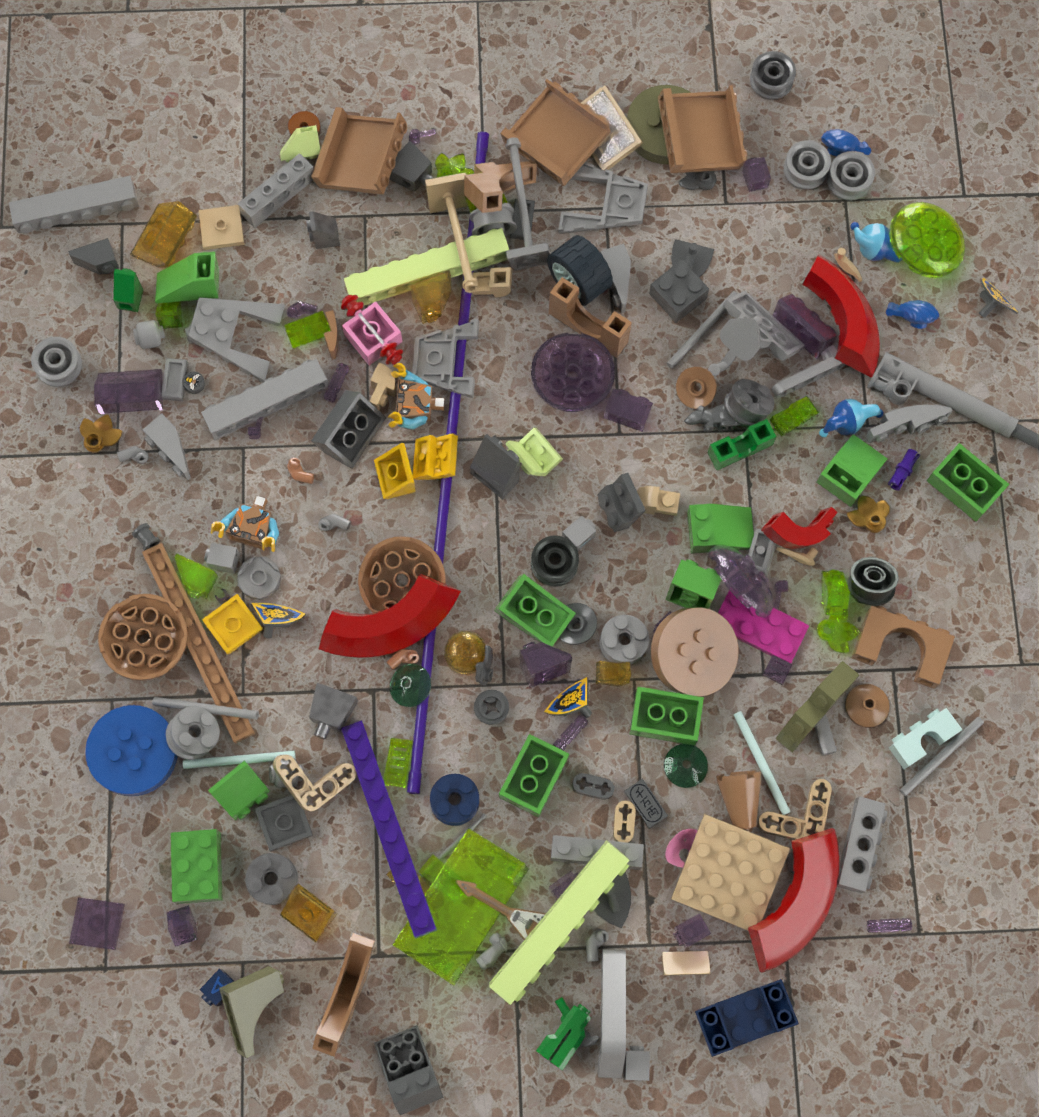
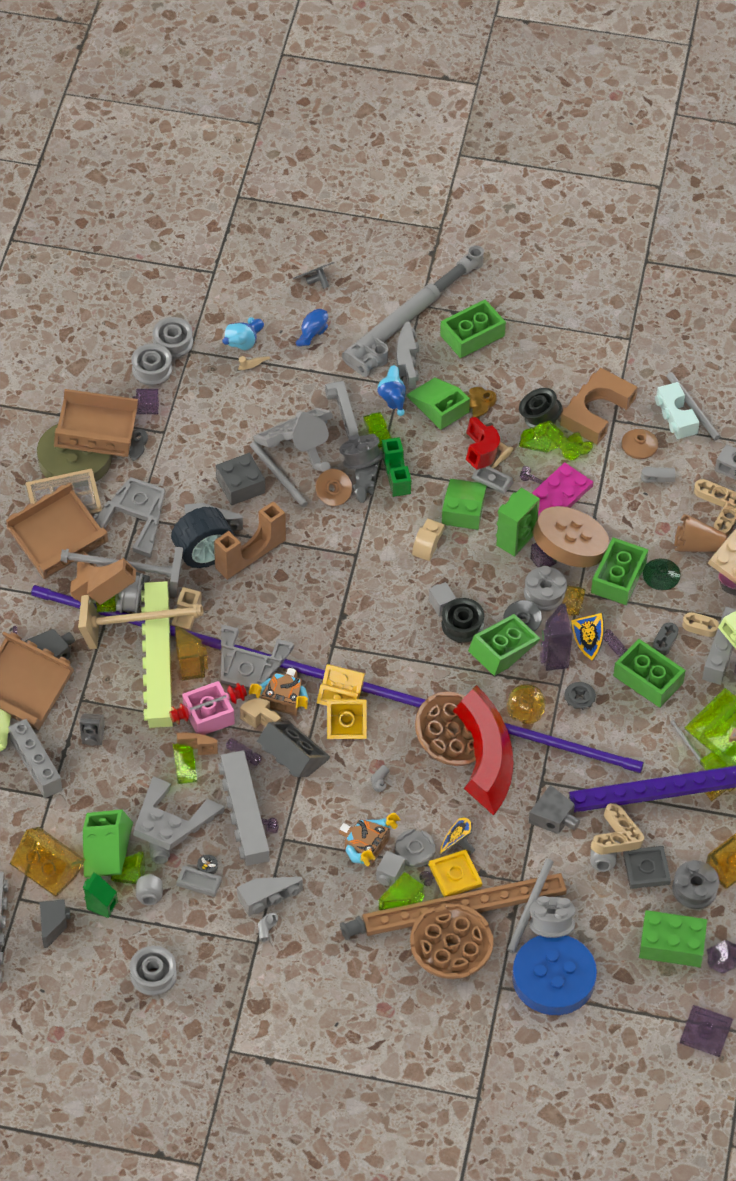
camera: 75 degrees left, 20 degrees down
(100, 430) = (233, 951): pearl gold plate -> none
(128, 391) = (200, 916): clear purple slope -> none
(221, 227) = (54, 814): tan plate -> none
(233, 760) = (581, 893): light aqua piece -> none
(240, 791) = (613, 888): bright green slope -> none
(297, 472) = (321, 799): nougat arm -> none
(300, 308) = (160, 765): arm -> none
(394, 779) = (625, 772): clear neon green slope -> none
(403, 656) = (518, 749): nougat arm -> none
(416, 691) = (550, 758): clear green dish -> none
(451, 166) = (59, 620): clear neon green plate -> none
(454, 785) = (659, 726): dark blue wheel -> none
(483, 671) = (548, 689): dark grey plate -> none
(496, 466) = (368, 637): dark grey slope -> none
(535, 453) = (359, 611): yellowish green bracket -> none
(572, 354) = (286, 556): clear purple brick -> none
(621, 503) = (425, 559): dark grey plate -> none
(628, 409) = (339, 539): clear purple brick -> none
(645, 803) = (694, 604): dark grey tile -> none
(694, 255) = (205, 468): dark grey shield -> none
(743, 579) = (513, 481): clear purple brick -> none
(762, 763) = (668, 522): light aqua piece -> none
(777, 669) = (595, 493): clear purple tile -> none
(783, 74) = (56, 367): flat silver wheel -> none
(804, 324) = (301, 399): clear purple slope -> none
(817, 706) = (631, 460): olive arch -> none
(841, 141) = (139, 334): blue animal -> none
(857, 324) = (298, 367): red brick -> none
(903, 469) = (447, 369): dark purple pin -> none
(927, 239) = (249, 300): clear neon green brick -> none

